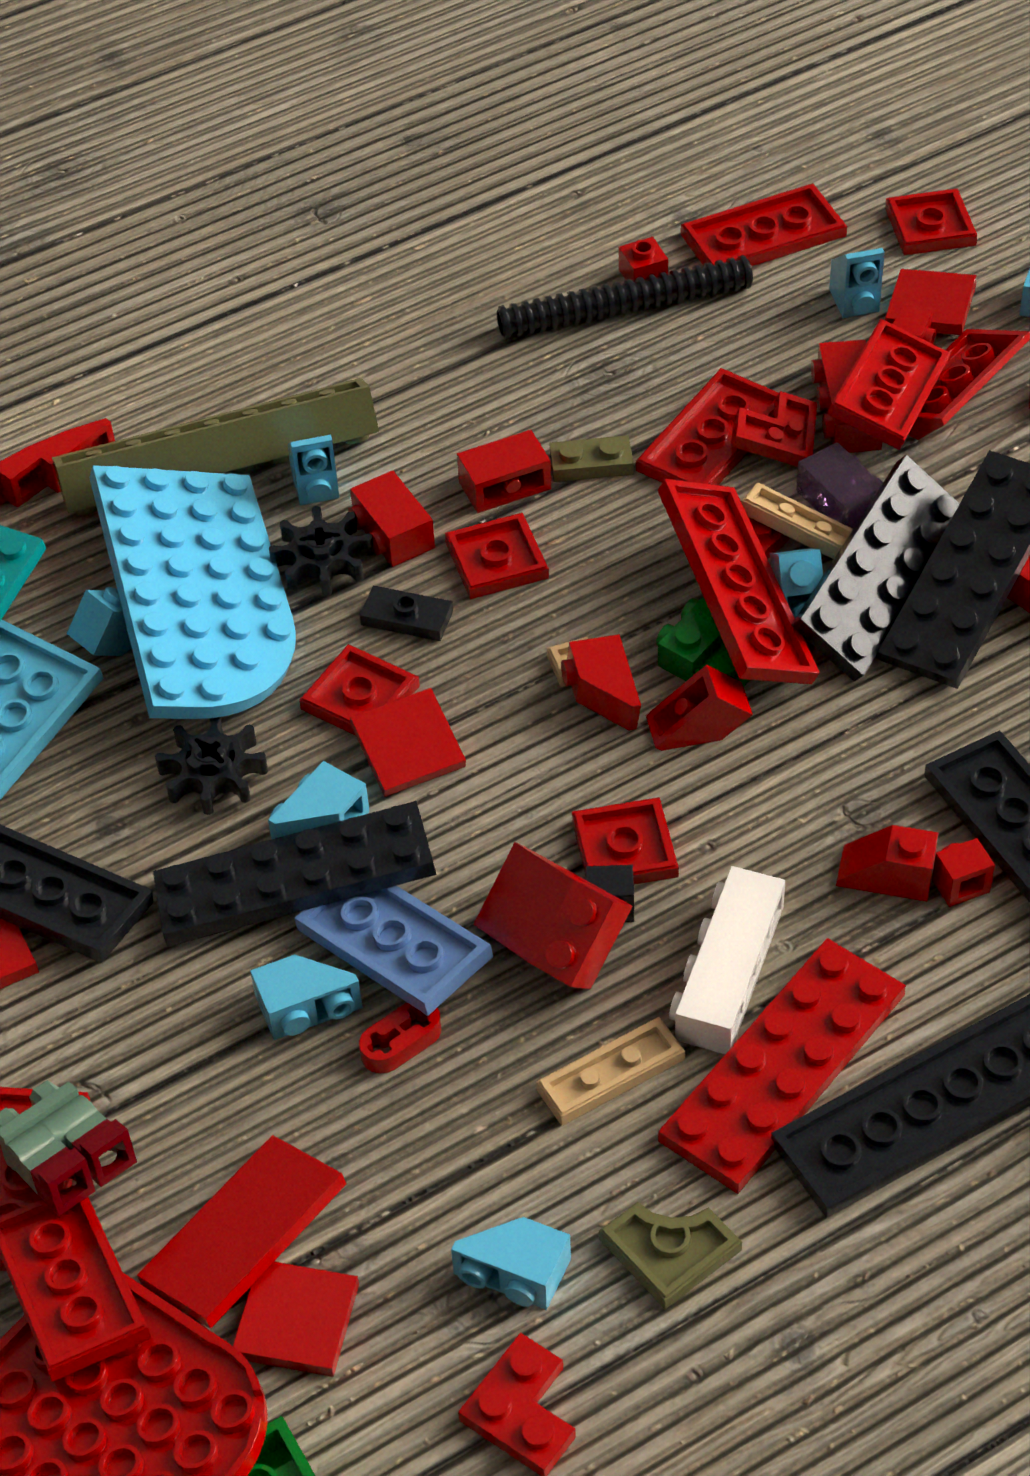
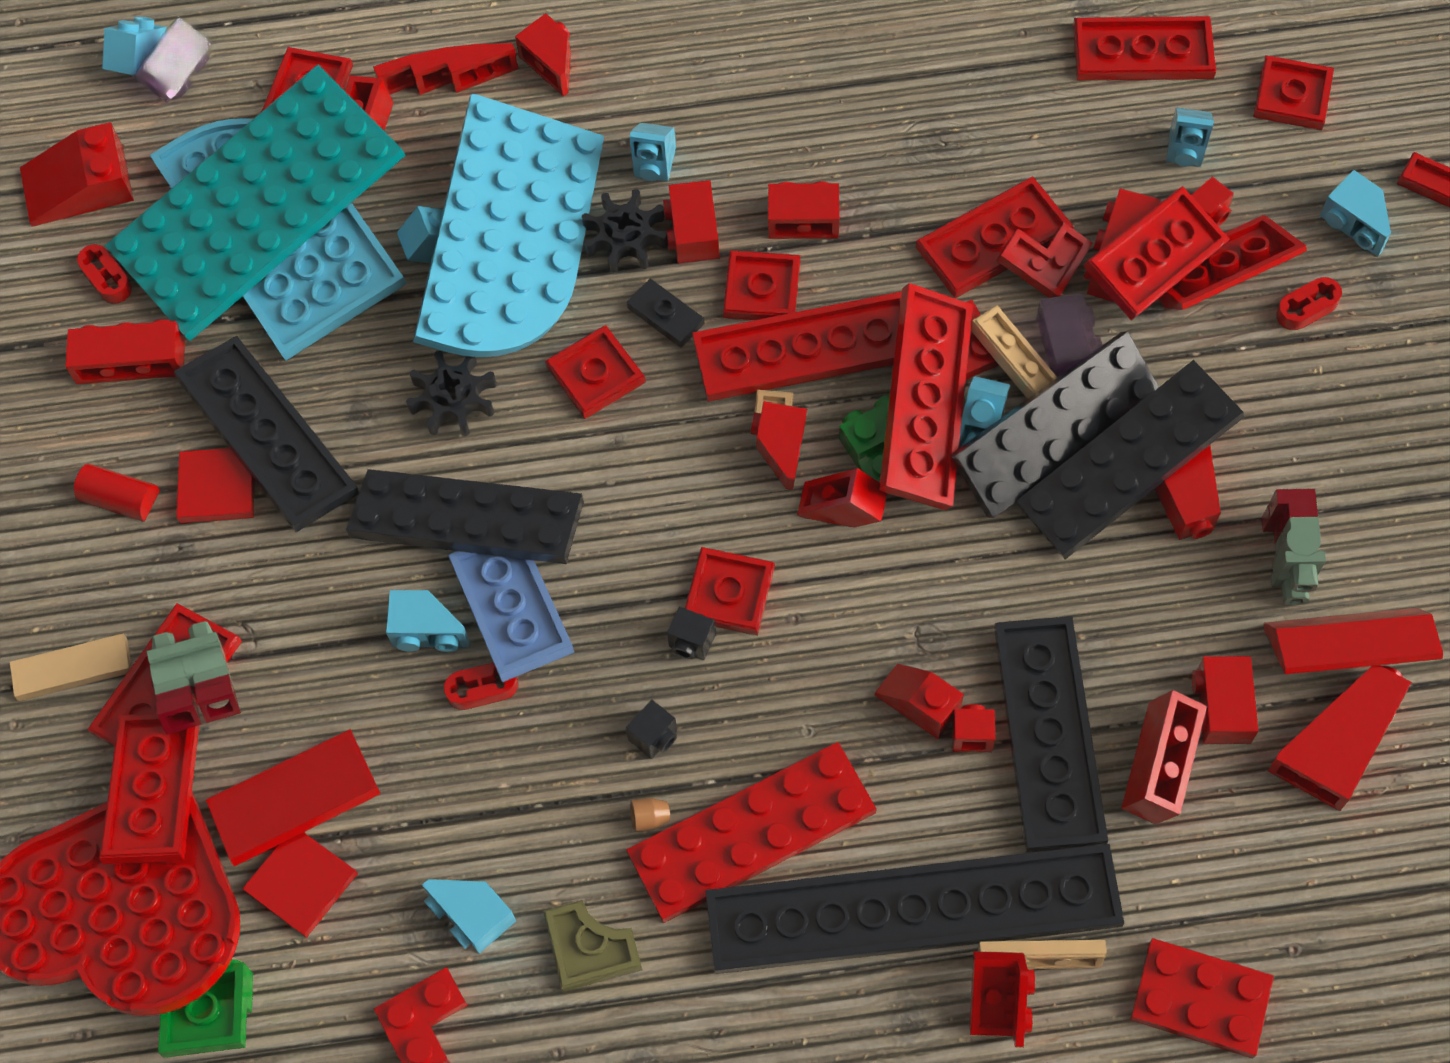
camera: 25 degrees right, 15 degrees up
(139, 411) = (547, 51): none -> red slope
(226, 440) = (596, 99): olive brick -> none
(319, 800) = (514, 463): medium azure slope -> none
(407, 742) = (606, 433): red tile -> none
(552, 917) = (633, 640): red slope -> none
(572, 592) = (798, 346): none -> red plate
(591, 458) = (883, 223): olive plate -> none
(610, 1071) = (620, 781): tan tile -> none
(621, 1001) = (652, 729): none -> black plate
(624, 297) = (989, 75): black piece -> none
(642, 259) = (1021, 47): red plate -> none
(661, 1088) = (648, 813): none -> medium nougat hose
(728, 960) = (752, 728): white brick -> none
(940, 292) = (1251, 174): red tile -> none

